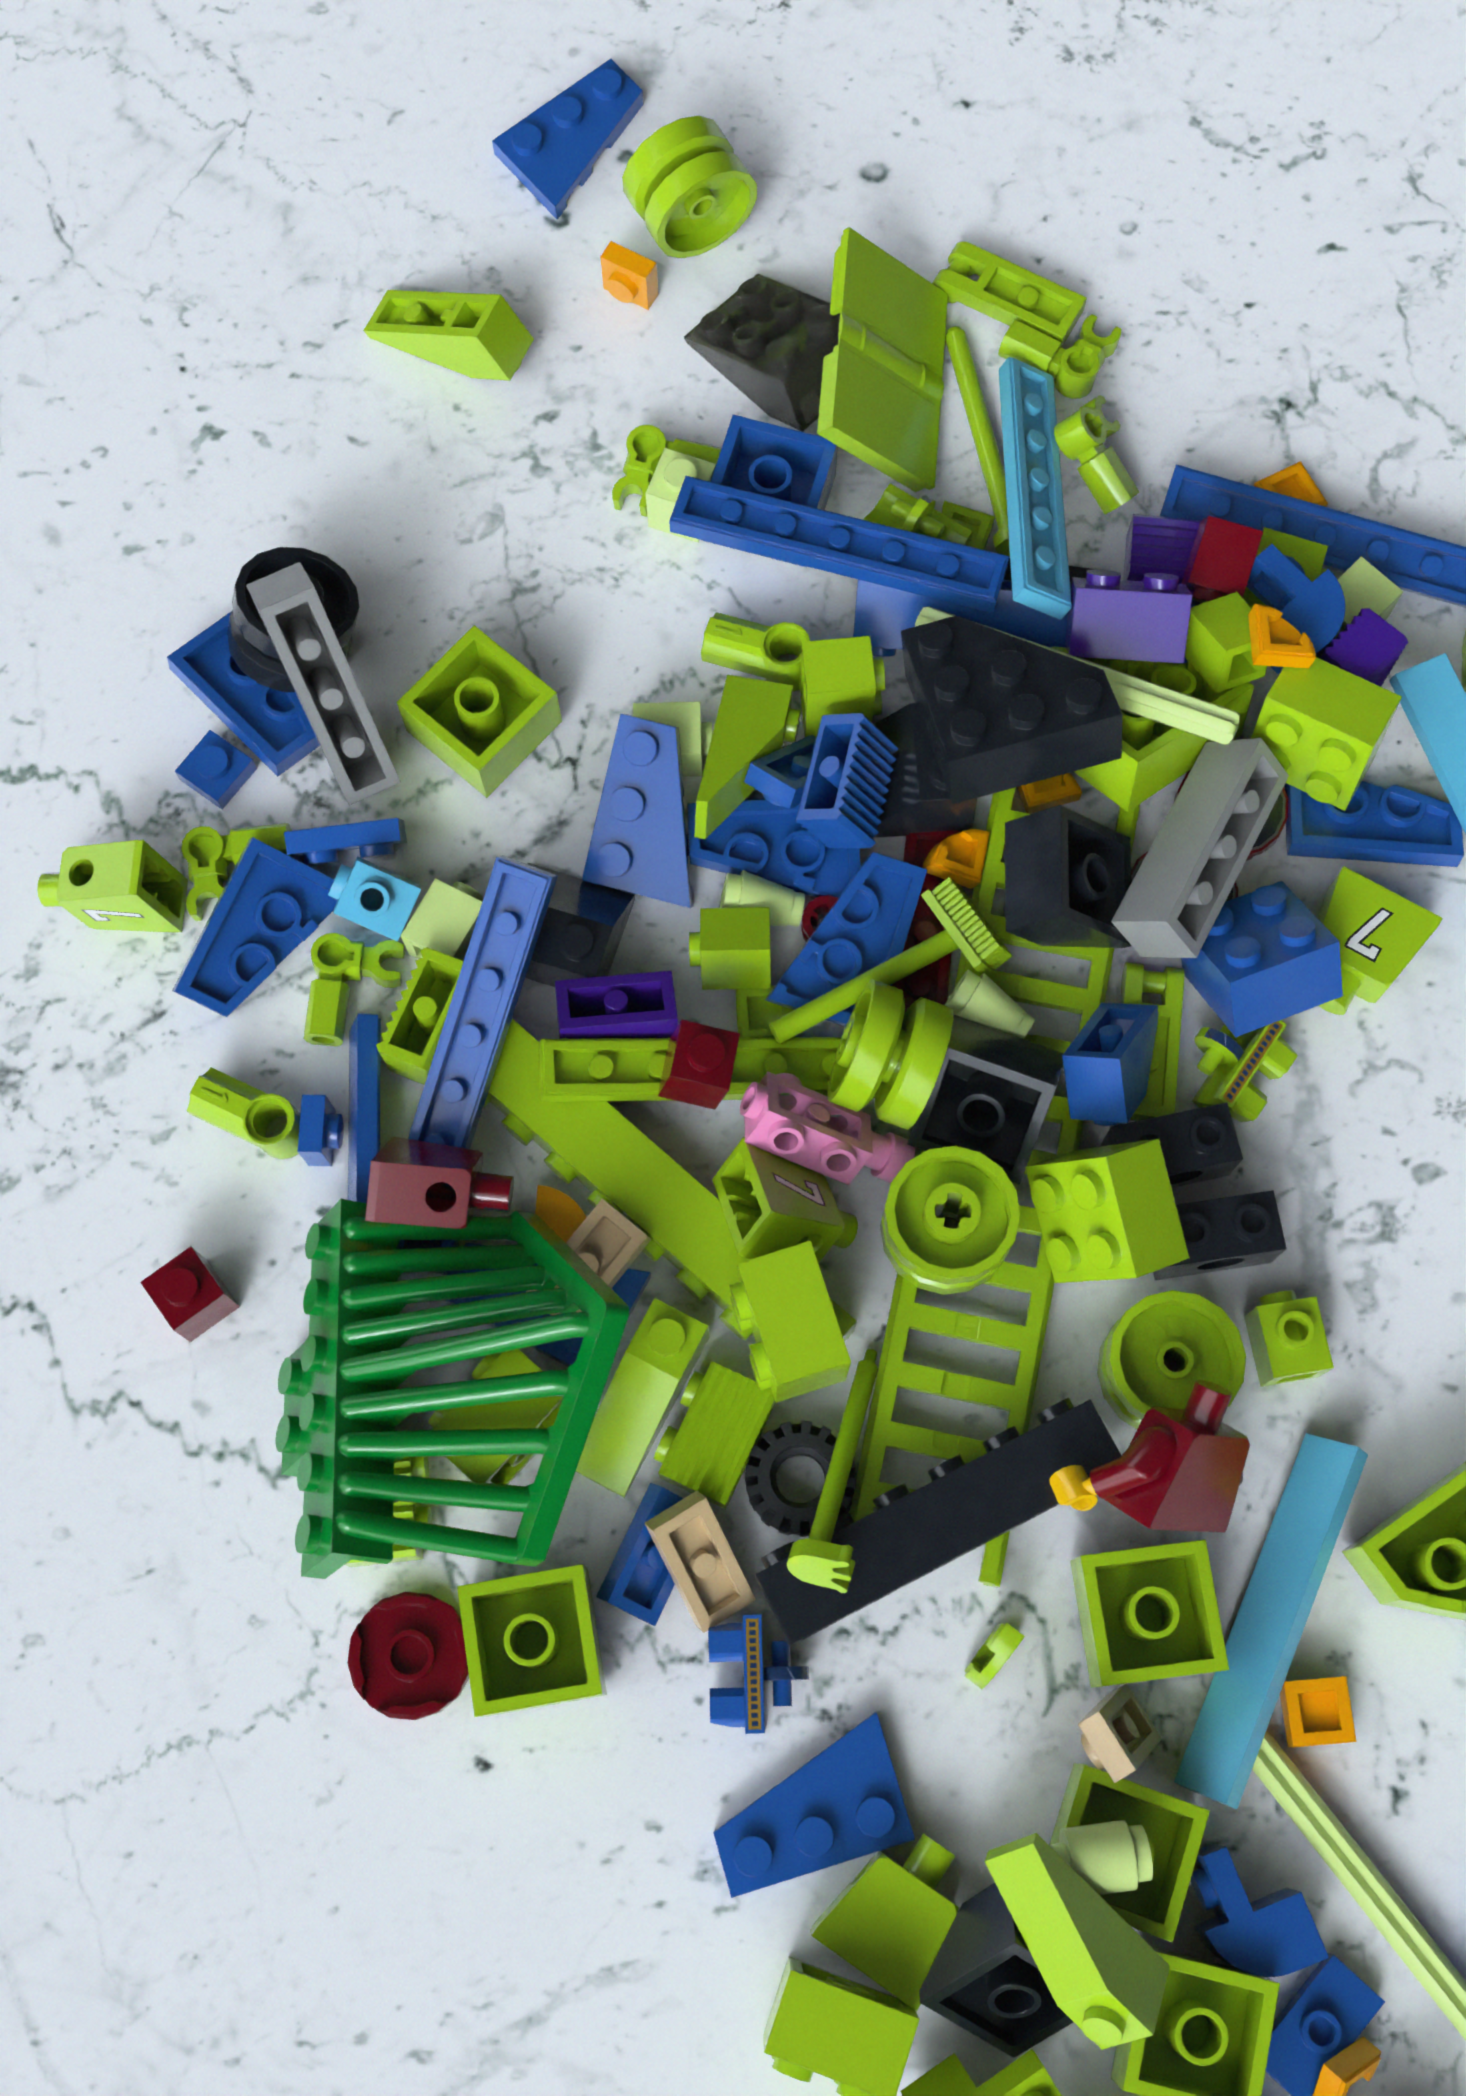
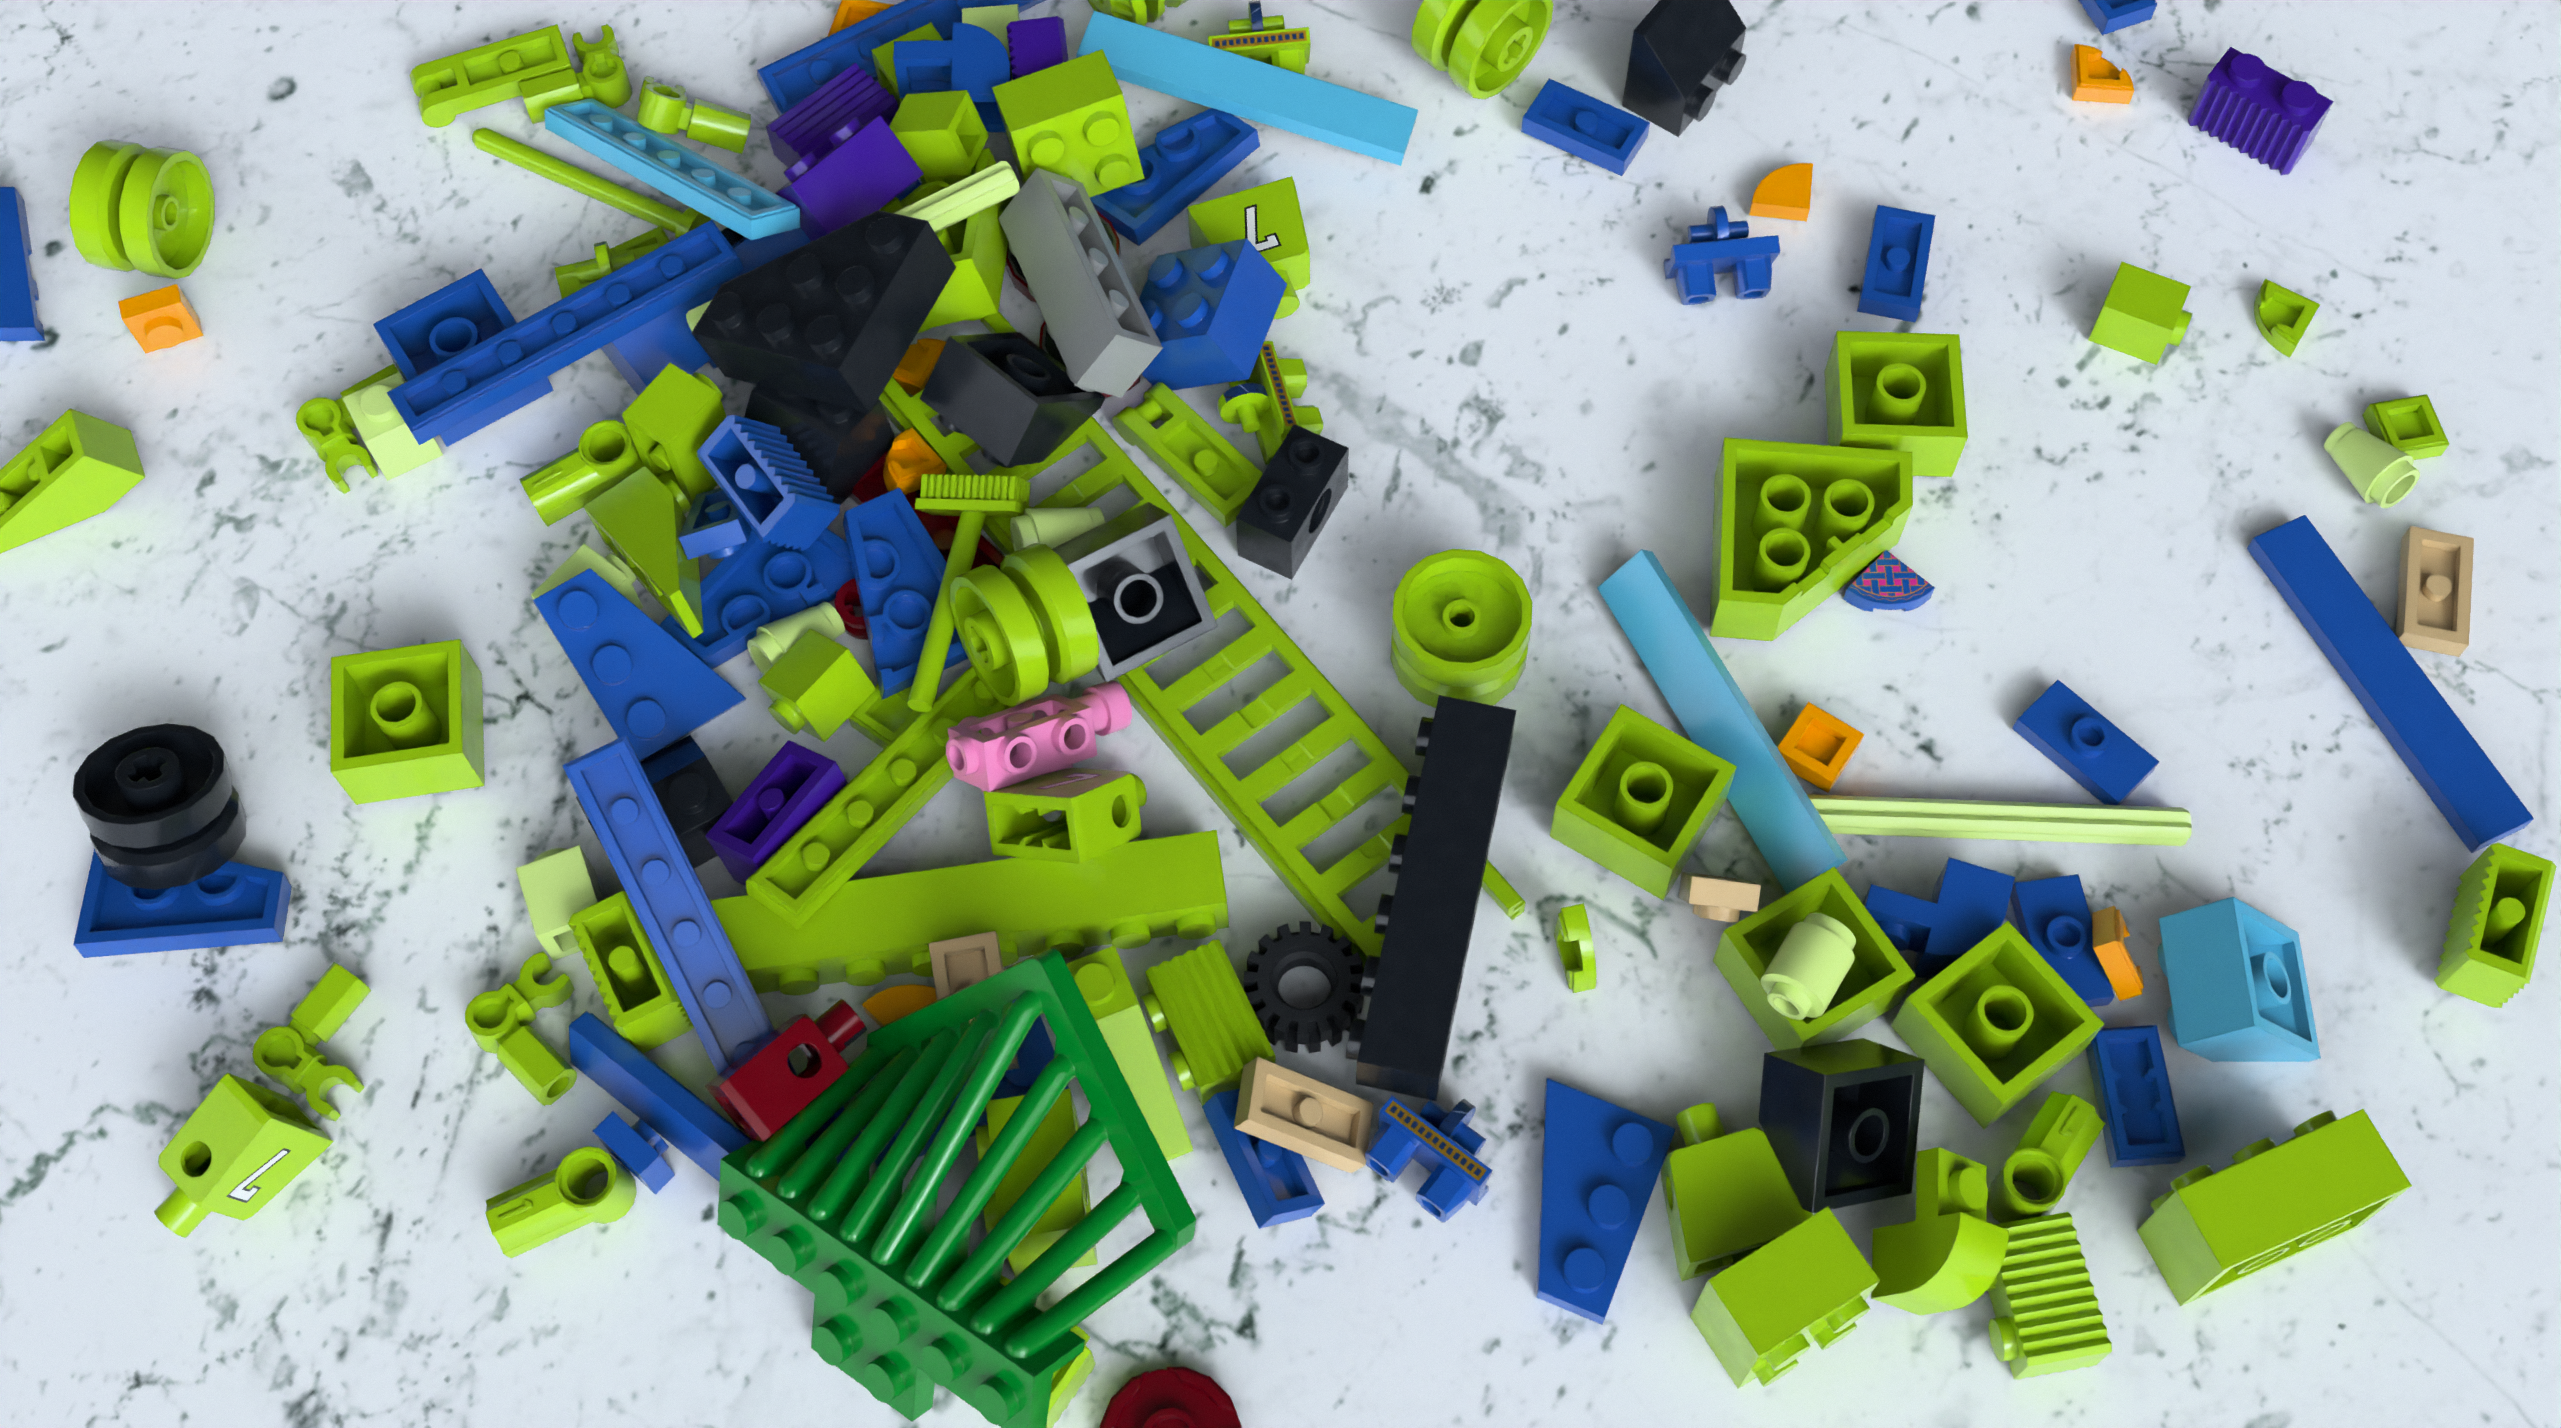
camera: 50 degrees left, 10 degrees down
(190, 1294) = (673, 1380): dark red brick -> none
(216, 769) = (218, 991): blue plate -> none
(254, 926) = (396, 1062): blue wing -> none
(323, 682) = (251, 805): light grey brick -> none
(323, 843) = (384, 945): blue plate -> none
(374, 897) = (479, 934): medium azure brick -> none
(531, 1641) = (1251, 1308): lime brick -> none
(698, 1064) = (891, 771): dark red brick -> none
(771, 347) = (354, 257): clear smoke slope -> none
(791, 1321) = (1176, 861): lime brick -> none
(817, 1558) = (1386, 994): lime piece -> none
(887, 370) = (453, 192): lime piece -> none
(956, 1185) = (1200, 690): lime wheel -> none
(1083, 1948) = (1861, 1029): lime slope -> none
(1107, 1212) = (1301, 571): lime brick -> none
(1110, 1063) = (1186, 481): blue slope -> none
(1174, 1473) = (1550, 670): dark red torso -> none
(1221, 559) = (866, 83): dark red brick -> none
(1228, 1234) = (1386, 524): black brick -> none
(1277, 641) = (975, 91): light orange tile -> none
(1288, 1339) = (1517, 533): lime brick -> none

